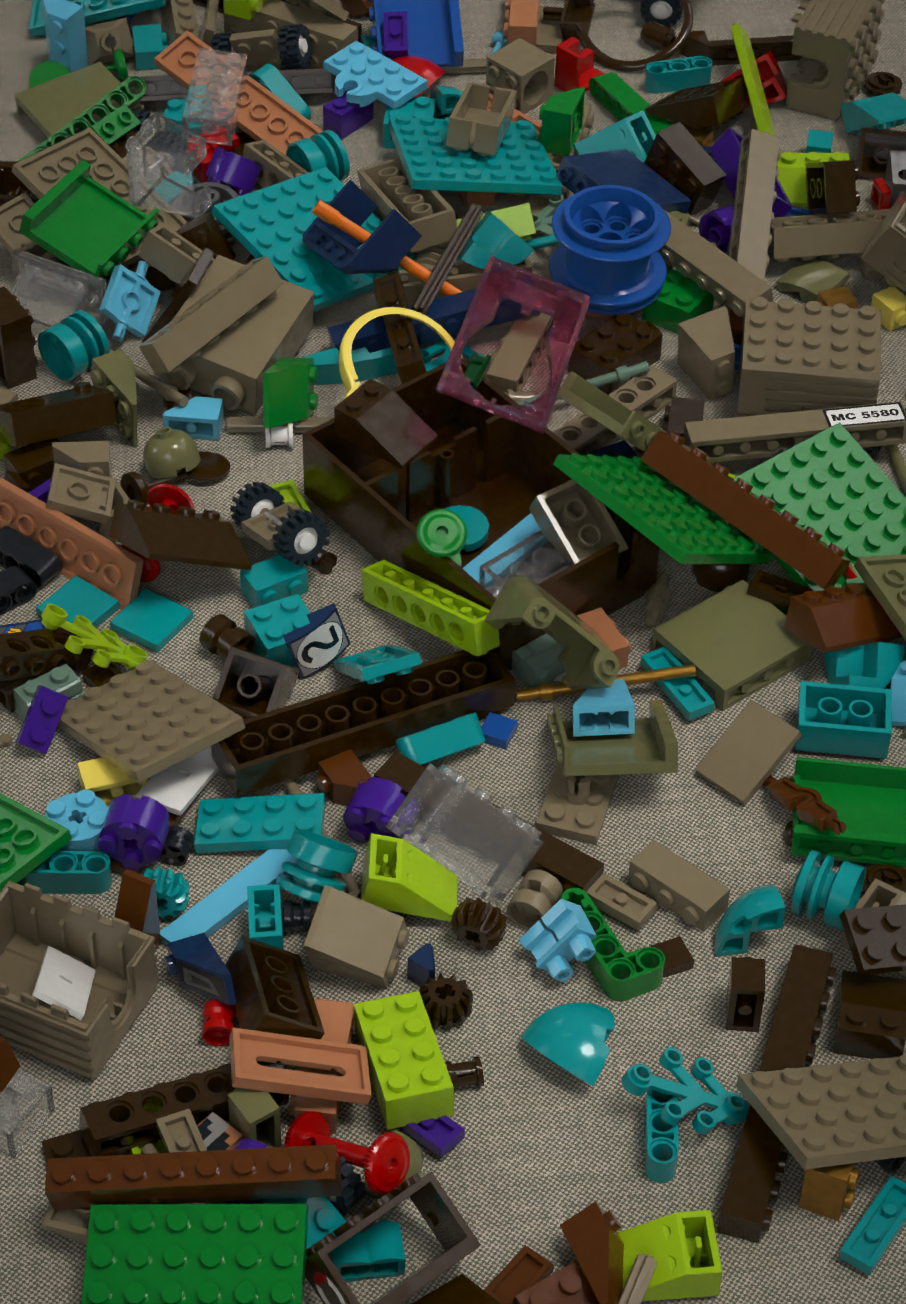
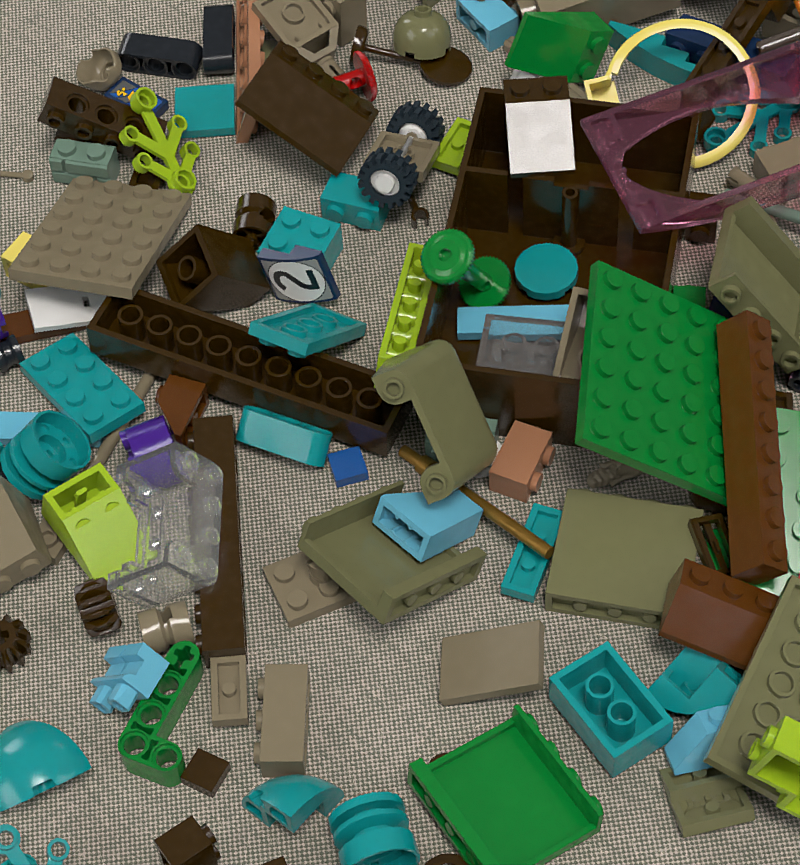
camera: 55 degrees right, 10 degrees up
(41, 719) = (49, 178): dark purple plate -> none
(151, 620) = (238, 162): teal tile -> none
(421, 965) = (27, 602): dark blue slope -> none
(477, 369) = (682, 136): dark green bar -> none
(806, 802) = (463, 753): reddish brown piece -> none

